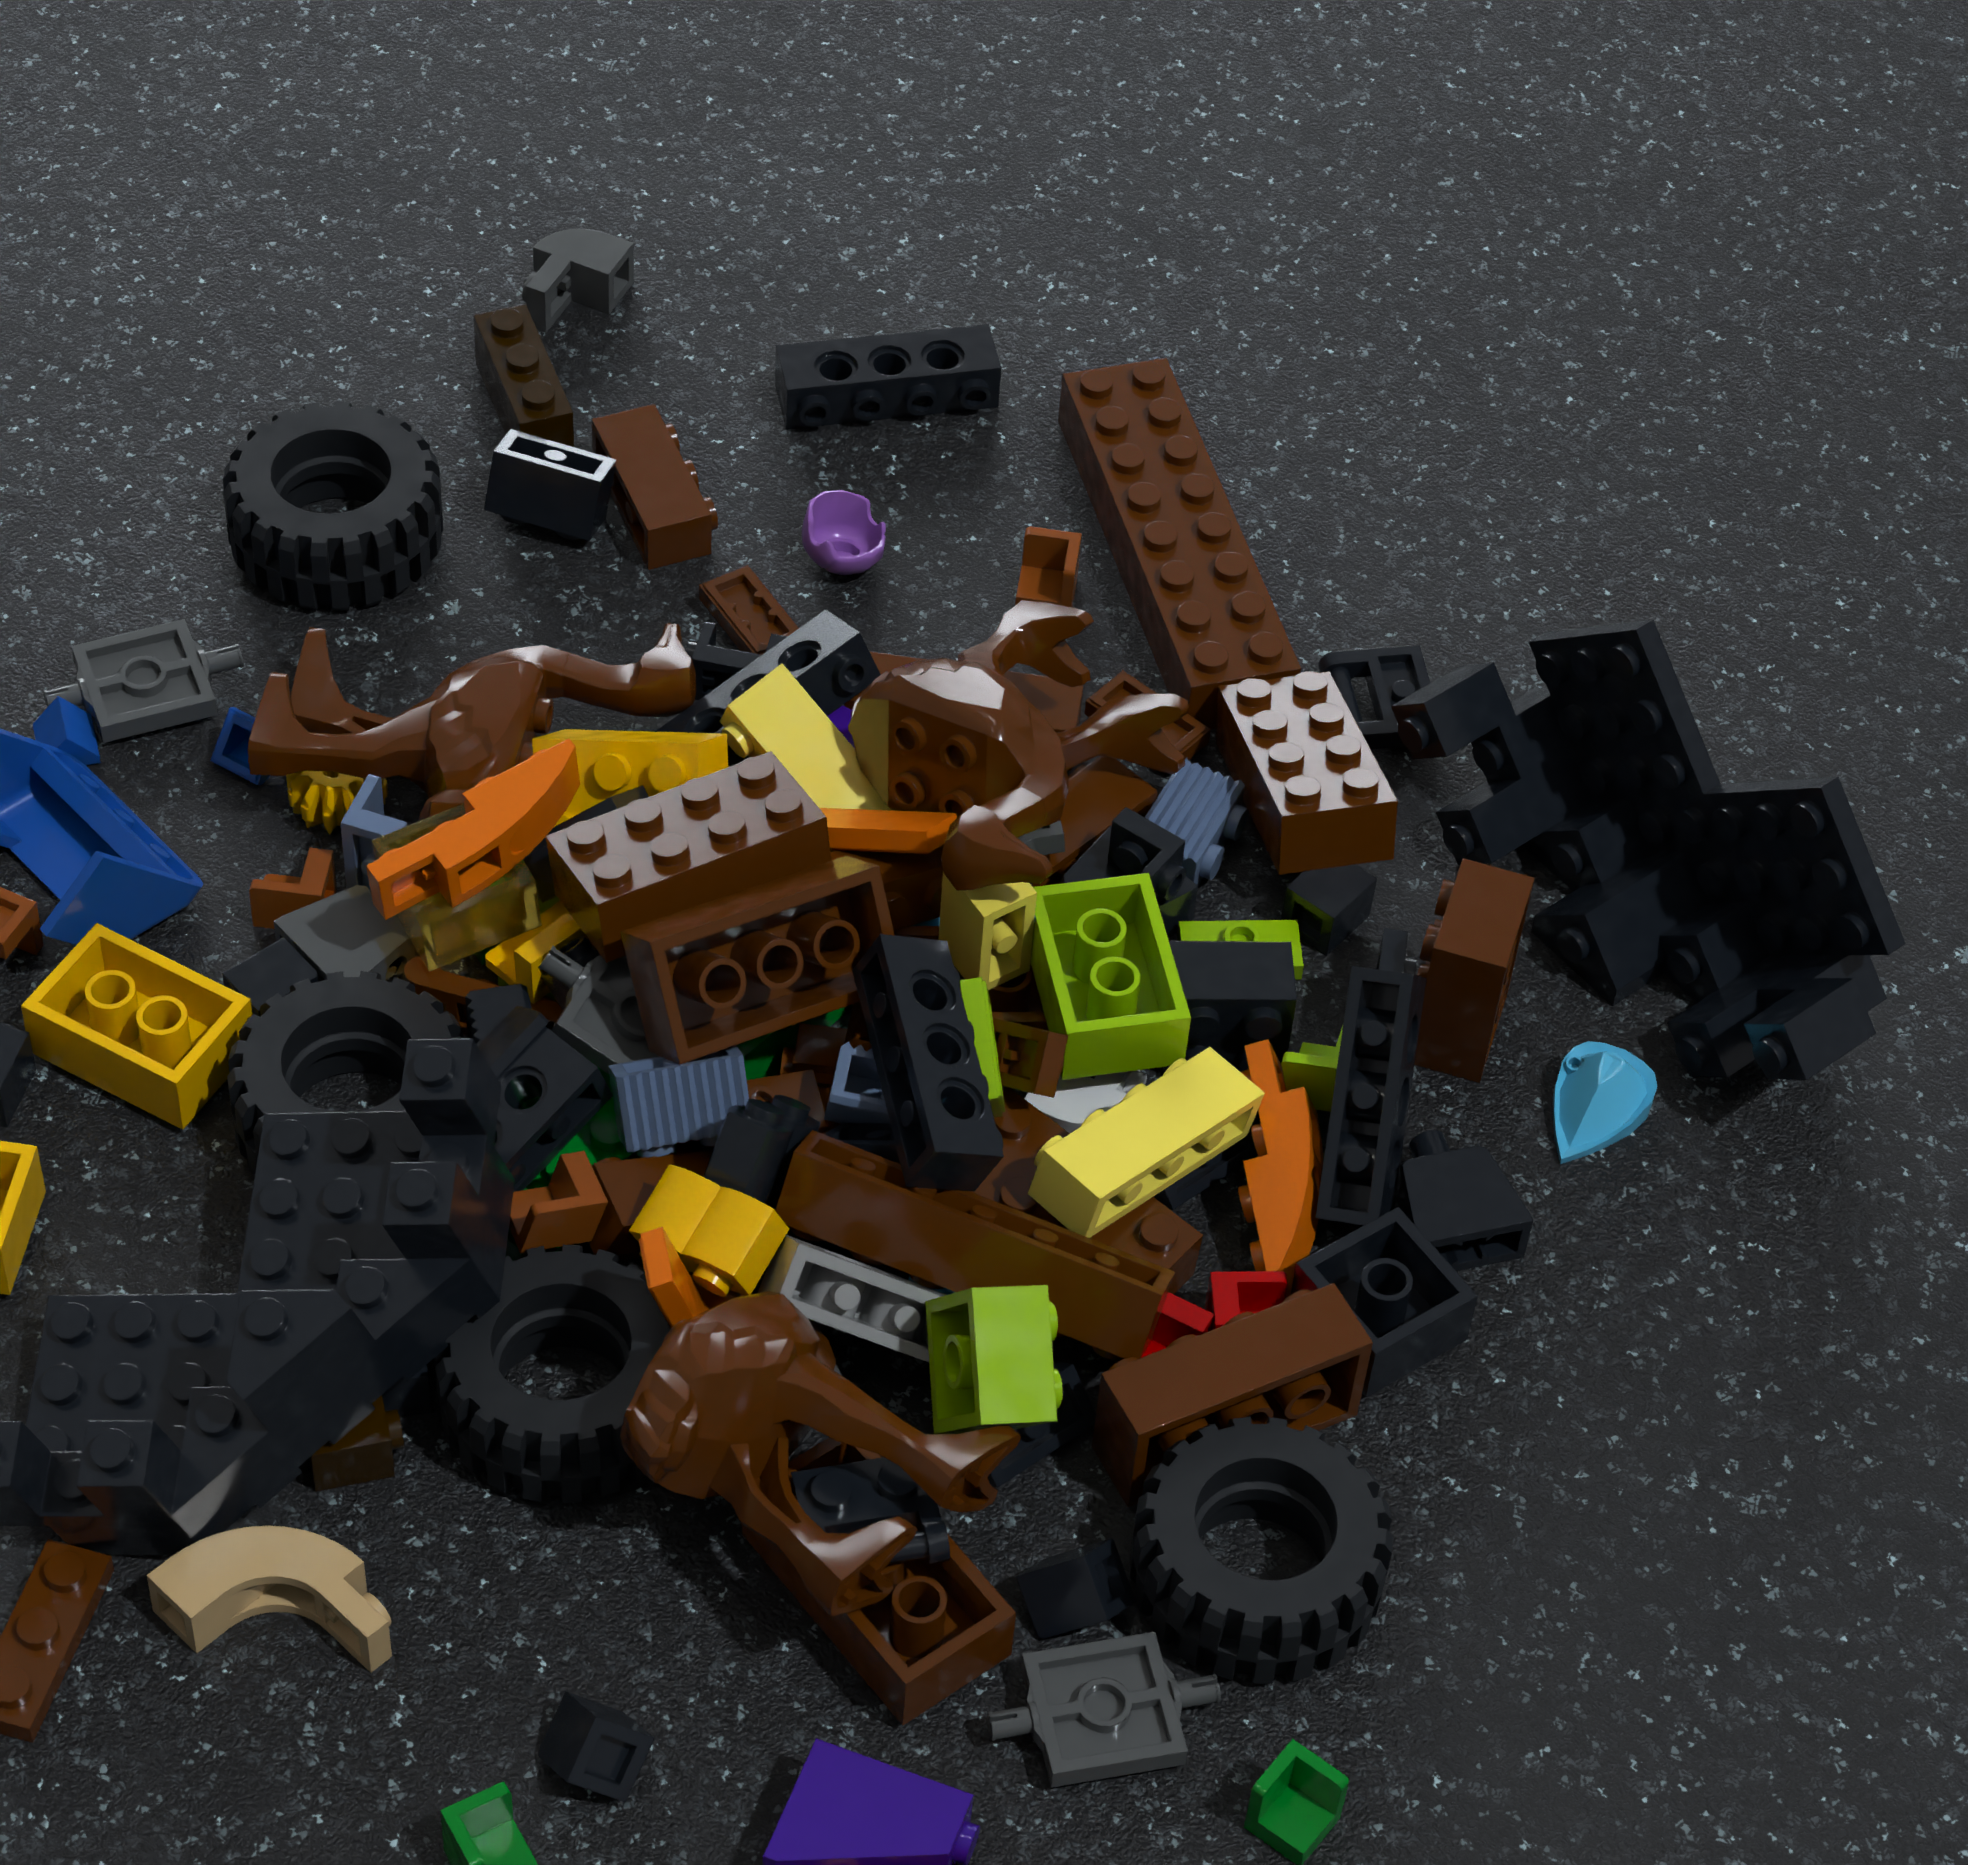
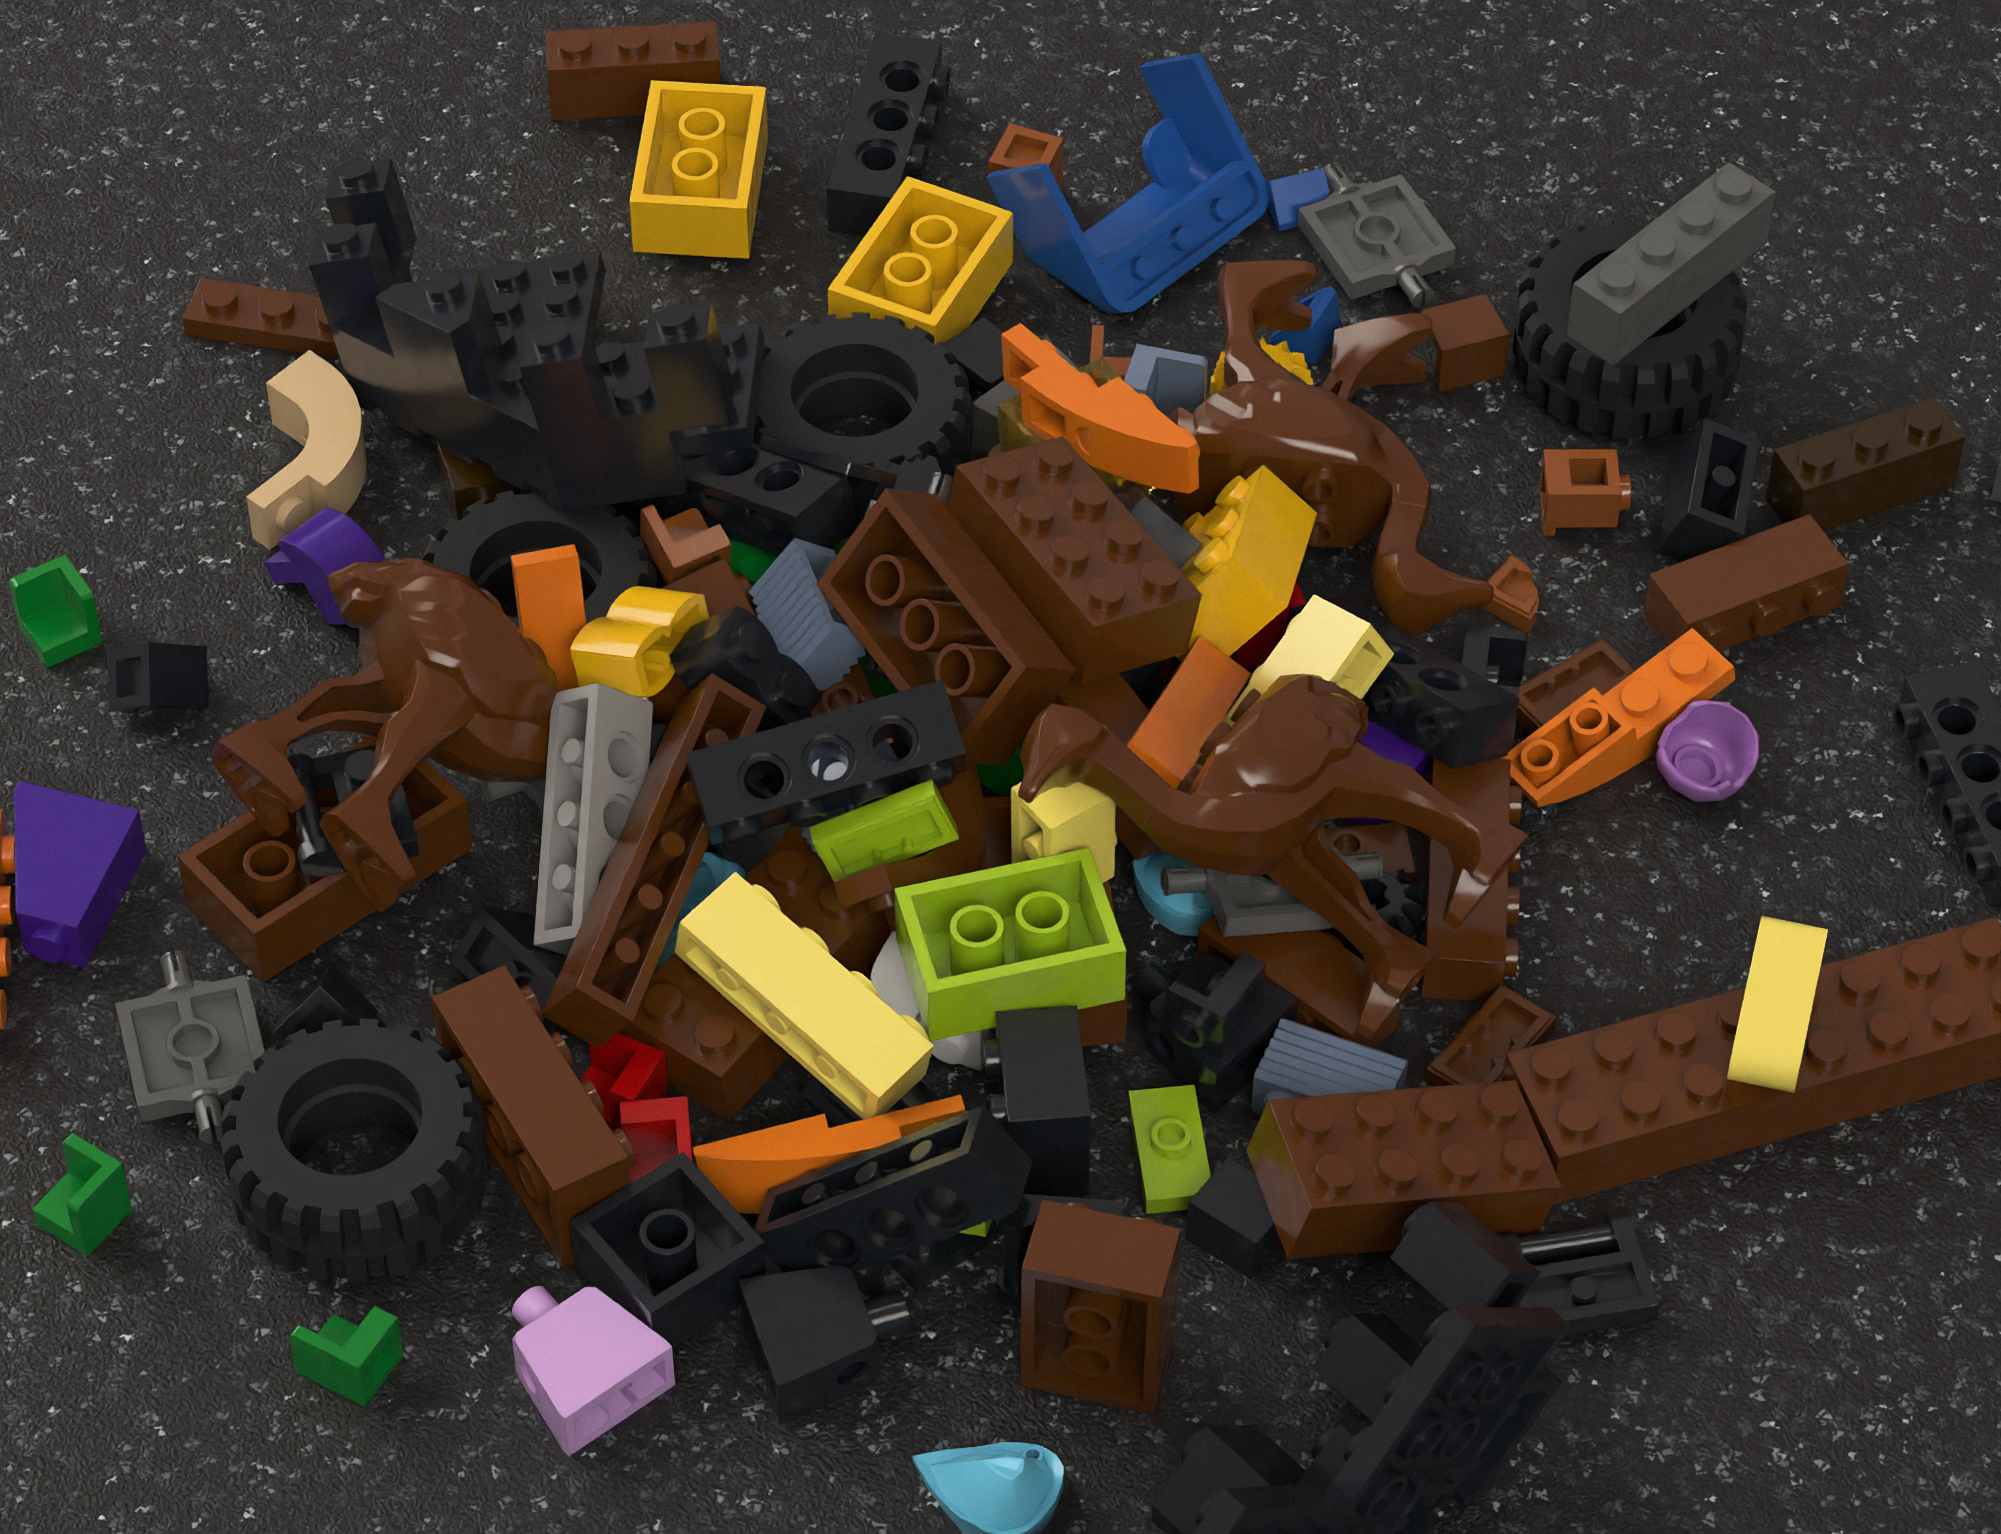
camera: 90 degrees right, 0 degrees up
(308, 608) = (1468, 342): none -> reddish brown panel
(329, 423) = (1670, 263): none -> dark grey brick
(466, 1559) = (319, 549): none -> dark purple brick
(516, 577) = (1581, 489): none -> dark orange brick
(617, 646) = (1514, 595): none -> dark orange tile
(787, 567) = (1616, 731): none -> orange slope
(992, 1358) = (500, 864): lime brick -> none
(1049, 566) = (1694, 953): dark orange panel -> none
(1176, 494) = (1777, 1004): none -> light yellow beam
(1473, 1573) = (349, 1356): none -> green panel
(1488, 1383) = (587, 1362): none -> lavender torso

